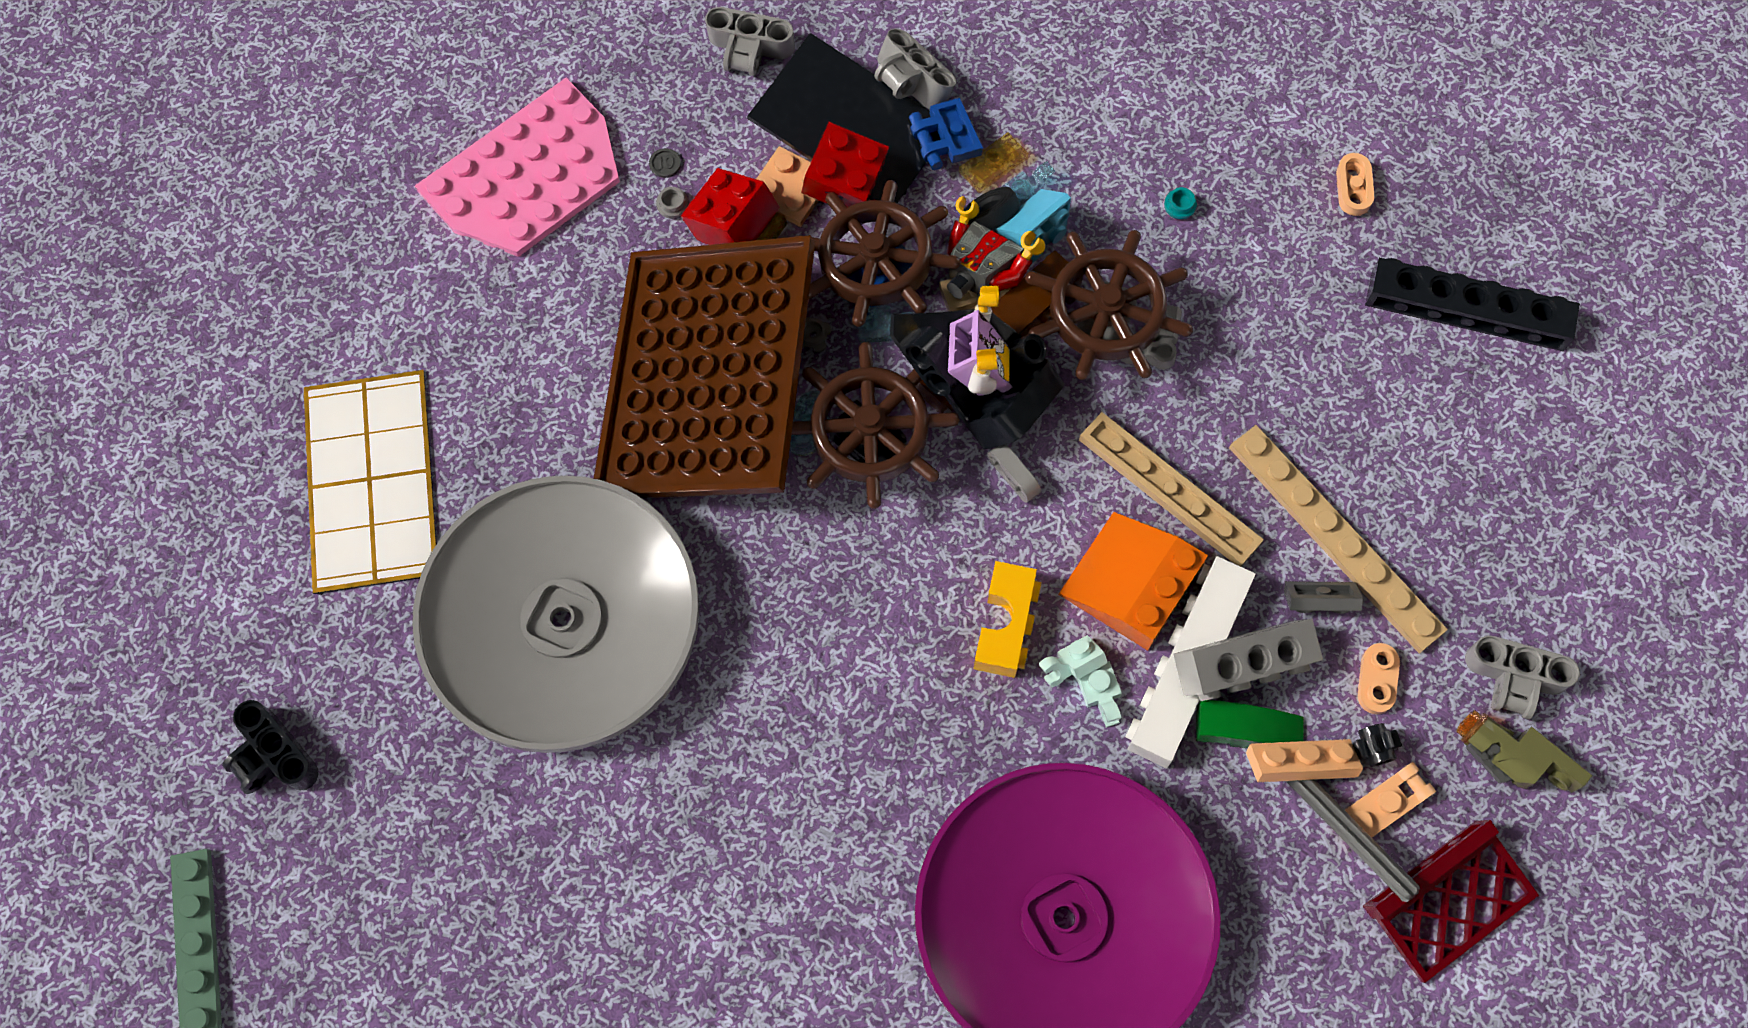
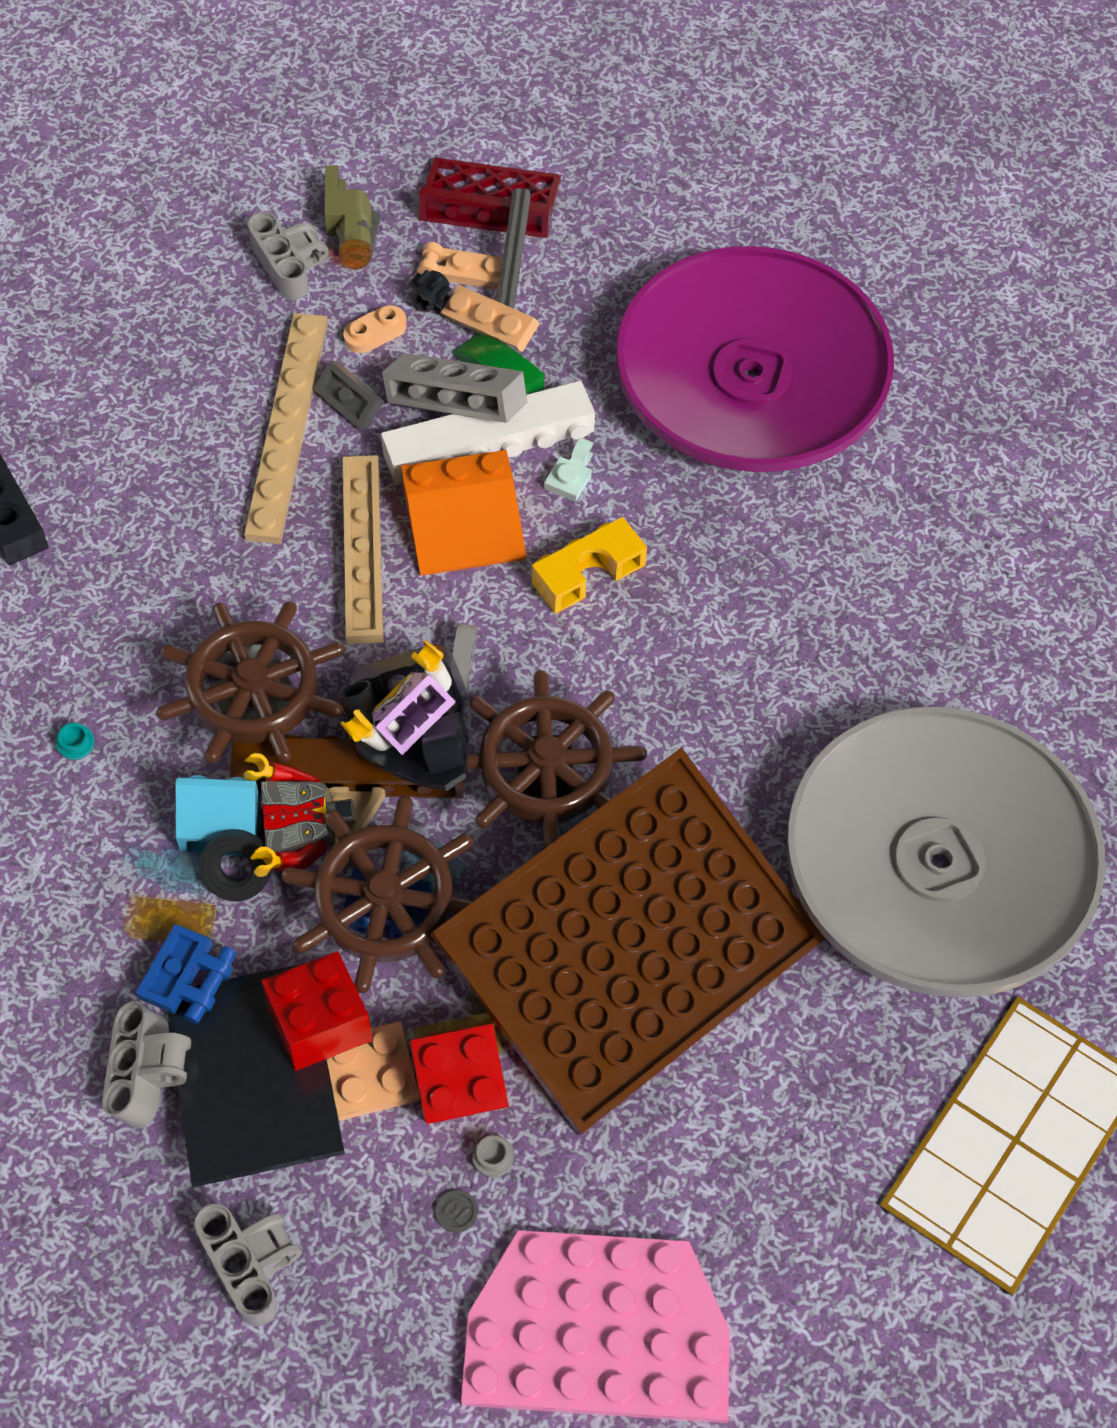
camera: 140 degrees left, 10 degrees down
(1076, 659) = (565, 499): light aqua plate -> none

